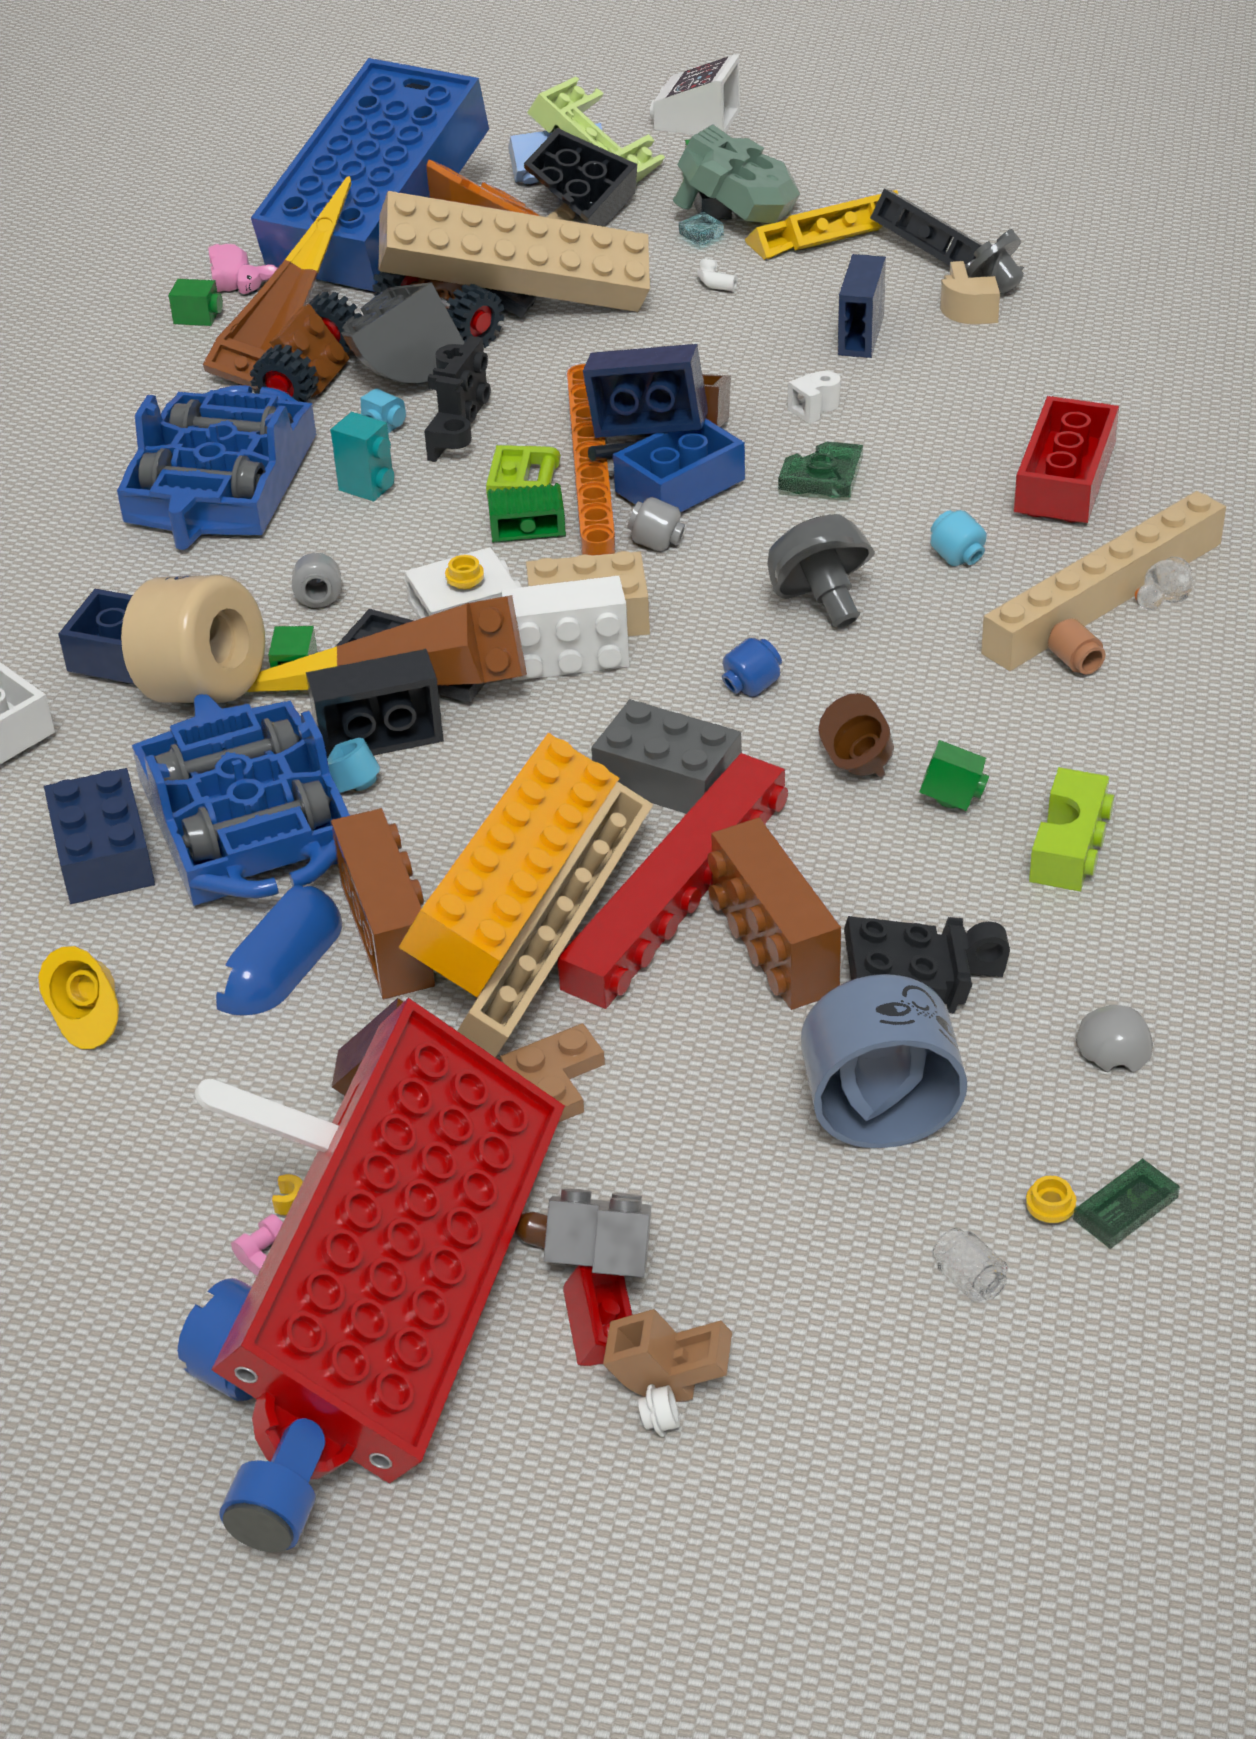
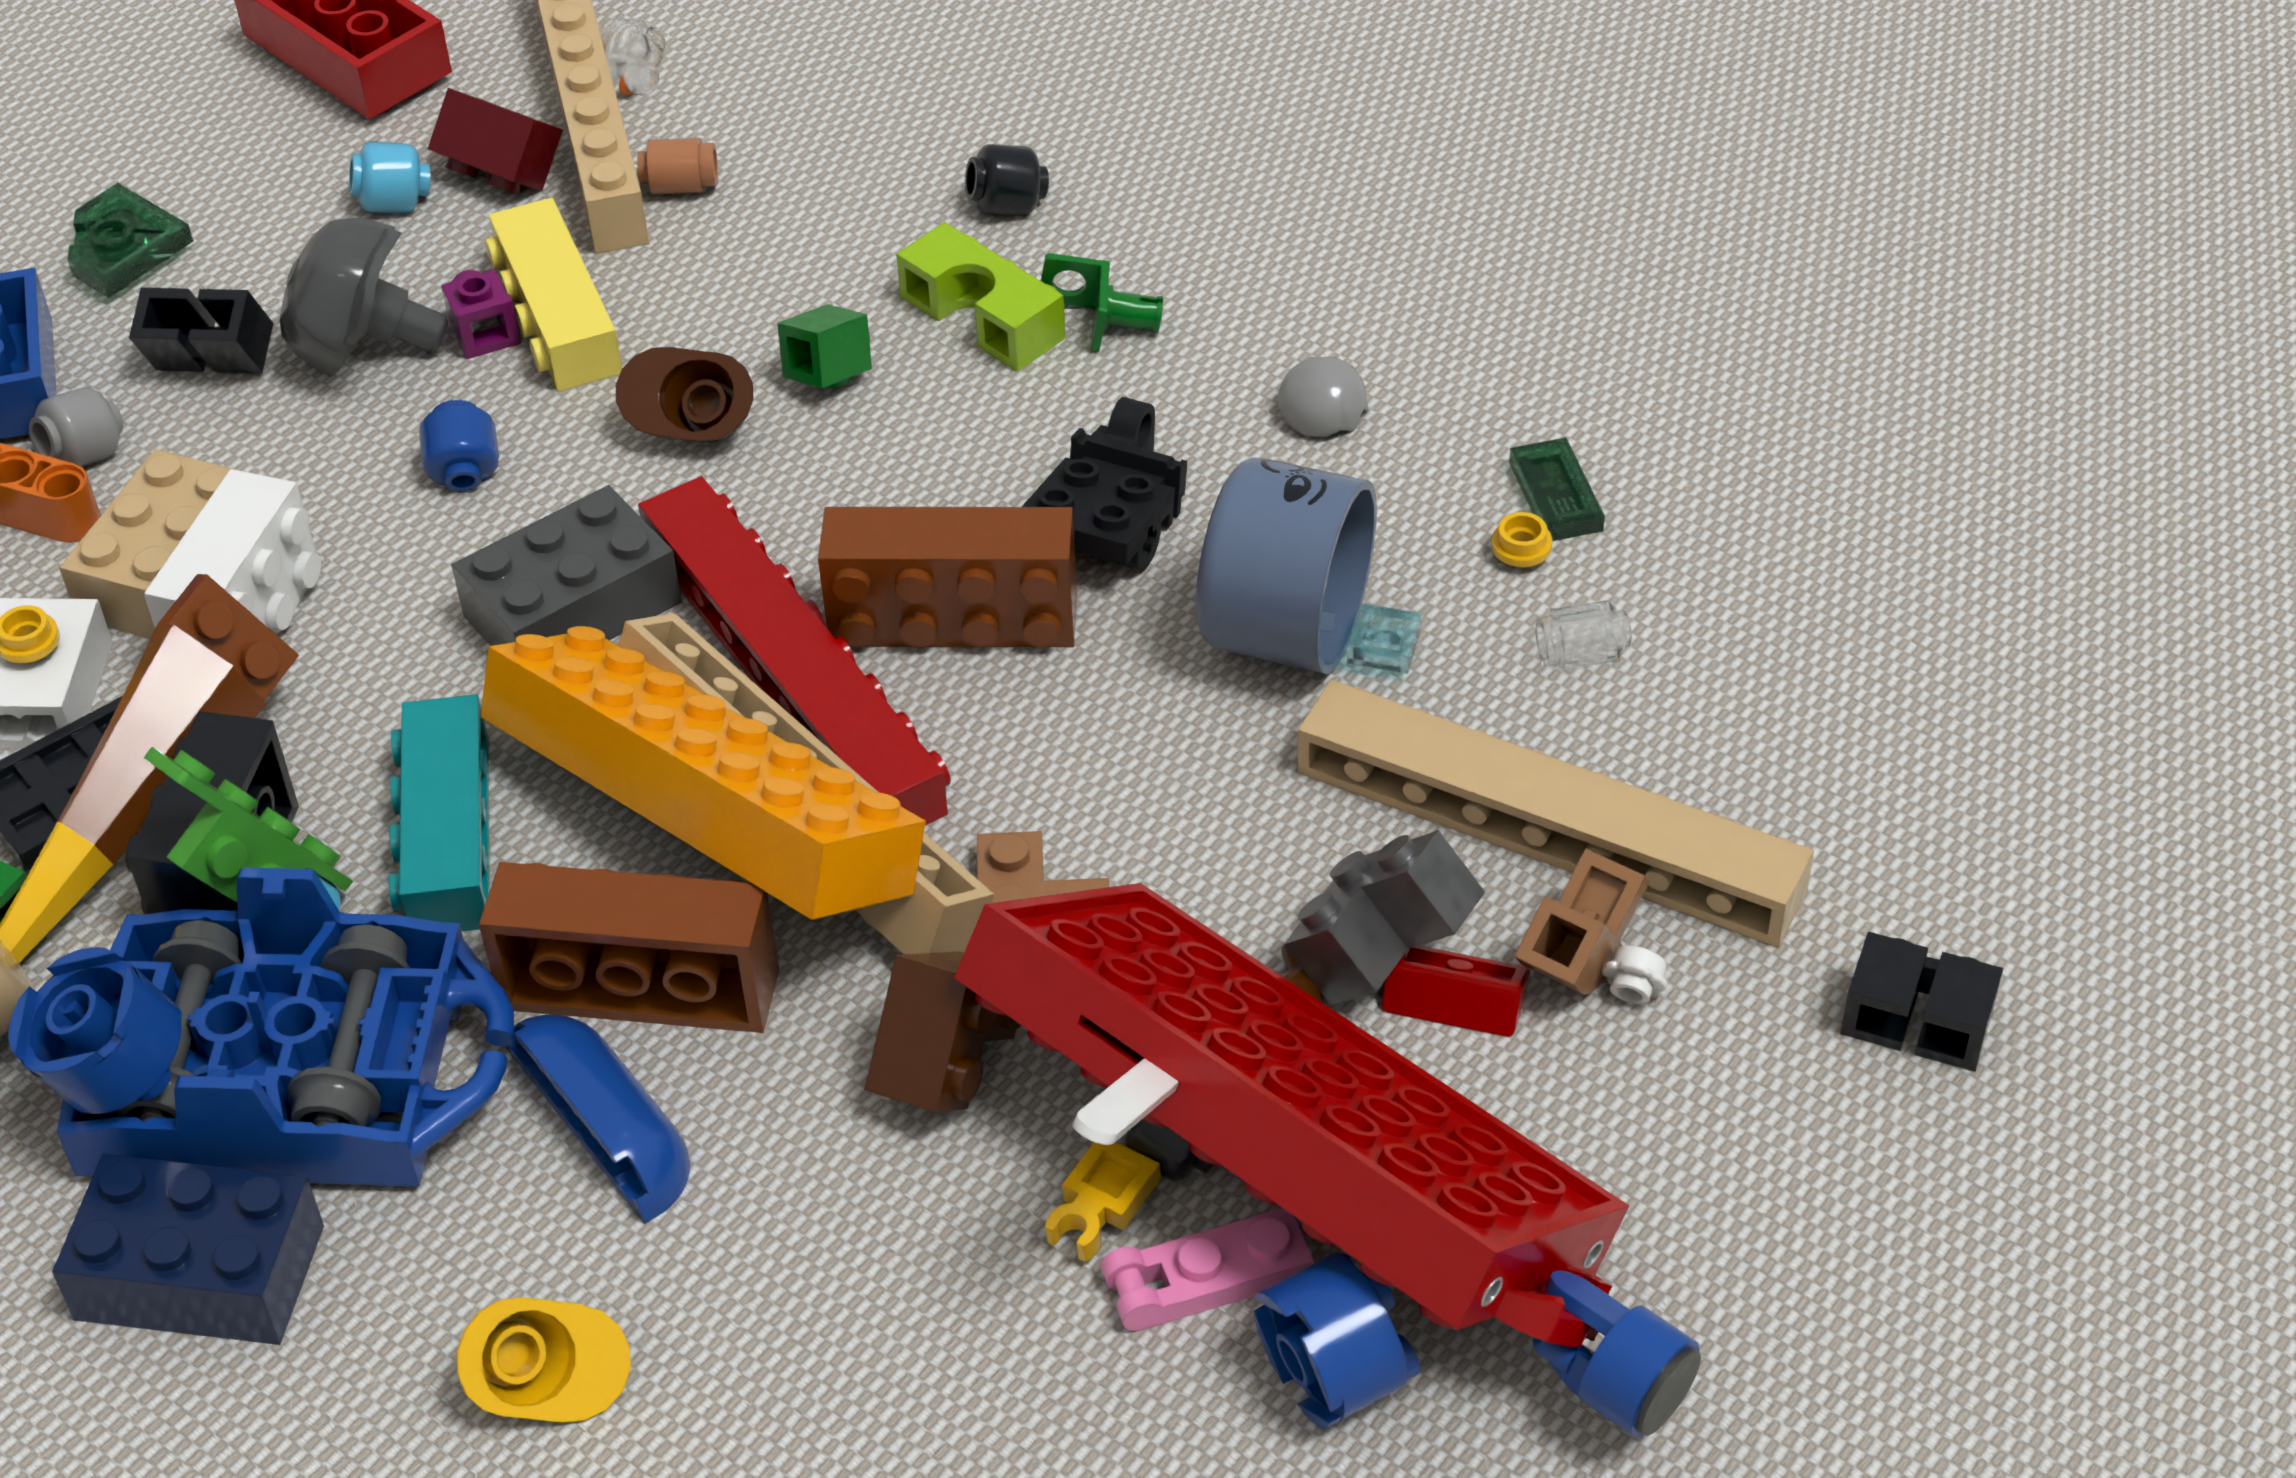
camera: 65 degrees left, 5 degrees up
(169, 713) = (97, 1032): none -> blue brick
(342, 704) = (233, 837): none -> bright green bracket
(452, 791) = (441, 811): none -> teal brick
(728, 1591) = (1887, 989): none -> black piece
(756, 522) = (182, 336): none -> black piece
(784, 1317) = (1553, 810): none -> tan brick
(882, 619) = (477, 297): none -> magenta brick
(893, 1157) = (1384, 638): none -> clear light blue plate
(914, 646) = (553, 295): none -> light yellow brick
(1021, 557) = (495, 140): none -> dark red brick
(1113, 888) = (1108, 305): none -> green bracket
(1194, 793) = (1006, 180): none -> black head

